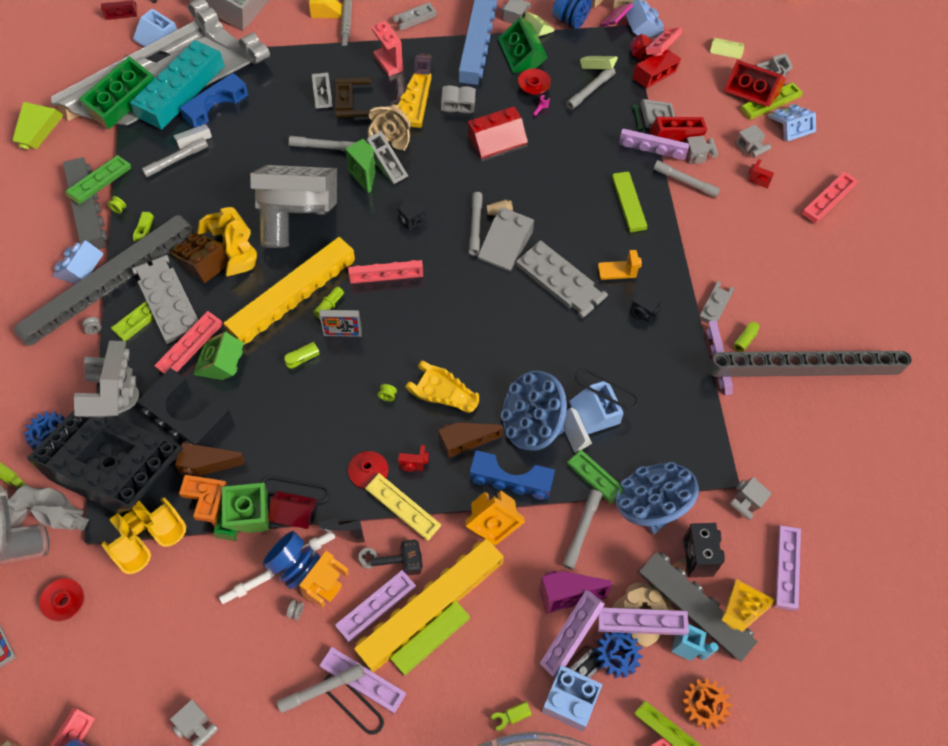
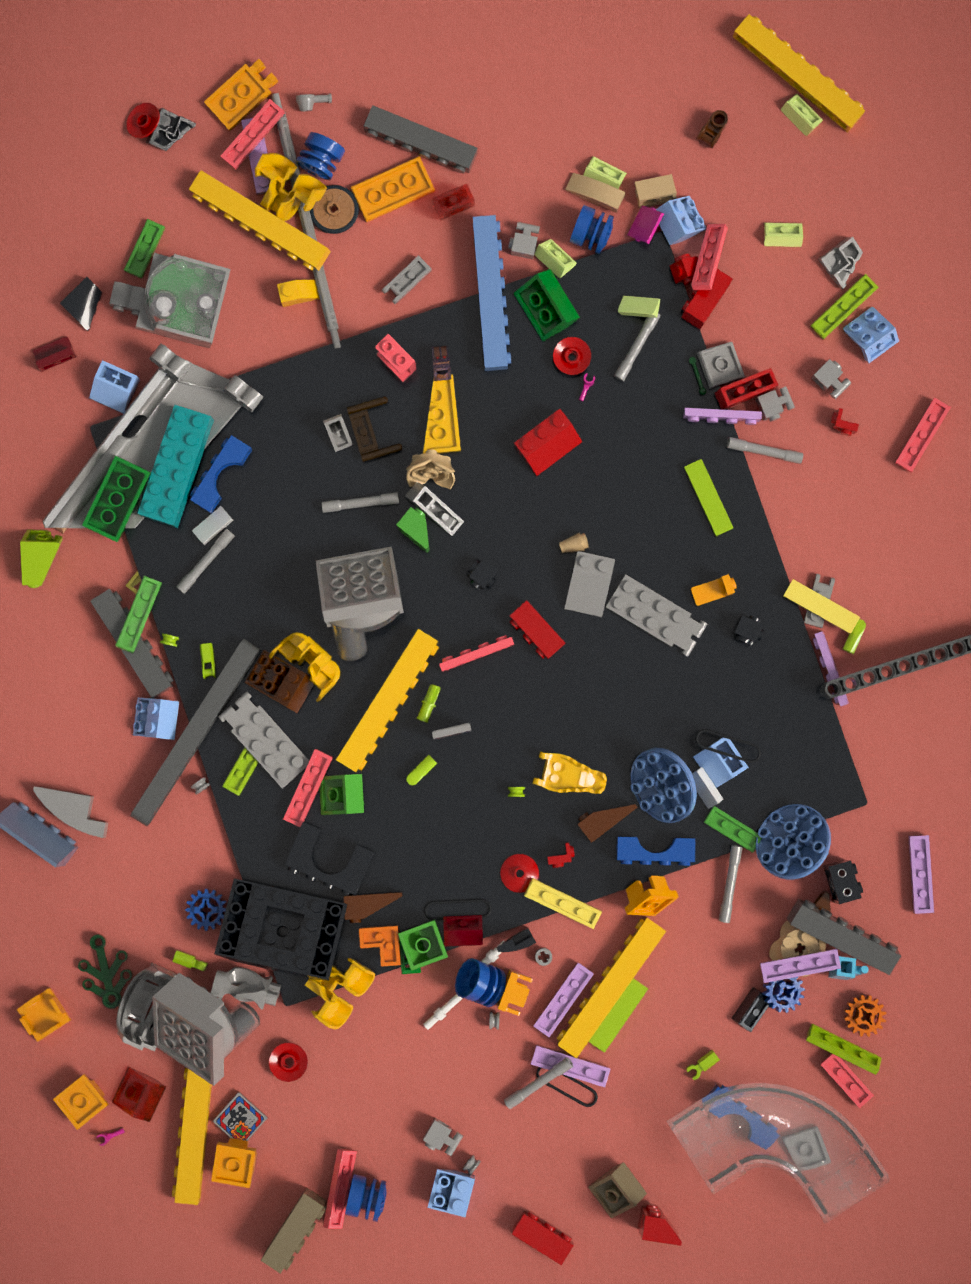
camera: 15 degrees left, 25 degrees up
(113, 376) = (264, 853): light grey piece -> none
(410, 558) = (581, 949): black piece -> none
(447, 265) = (536, 630): none -> red brick
(458, 99) = (492, 402): light grey brick -> none
(474, 241) = (548, 546): light grey piece -> none
(565, 589) = (727, 949): magenta slope -> none
(572, 633) = (741, 988): lavender plate -> none
(572, 698) = (751, 1040): light blue slope -> none
(719, 302) = (821, 606): none -> light yellow tile
(745, 606) = (886, 926): yellow wing -> none
(751, 496) = (880, 814): light grey brick -> none
(754, 83) = (822, 294): red slope -> none

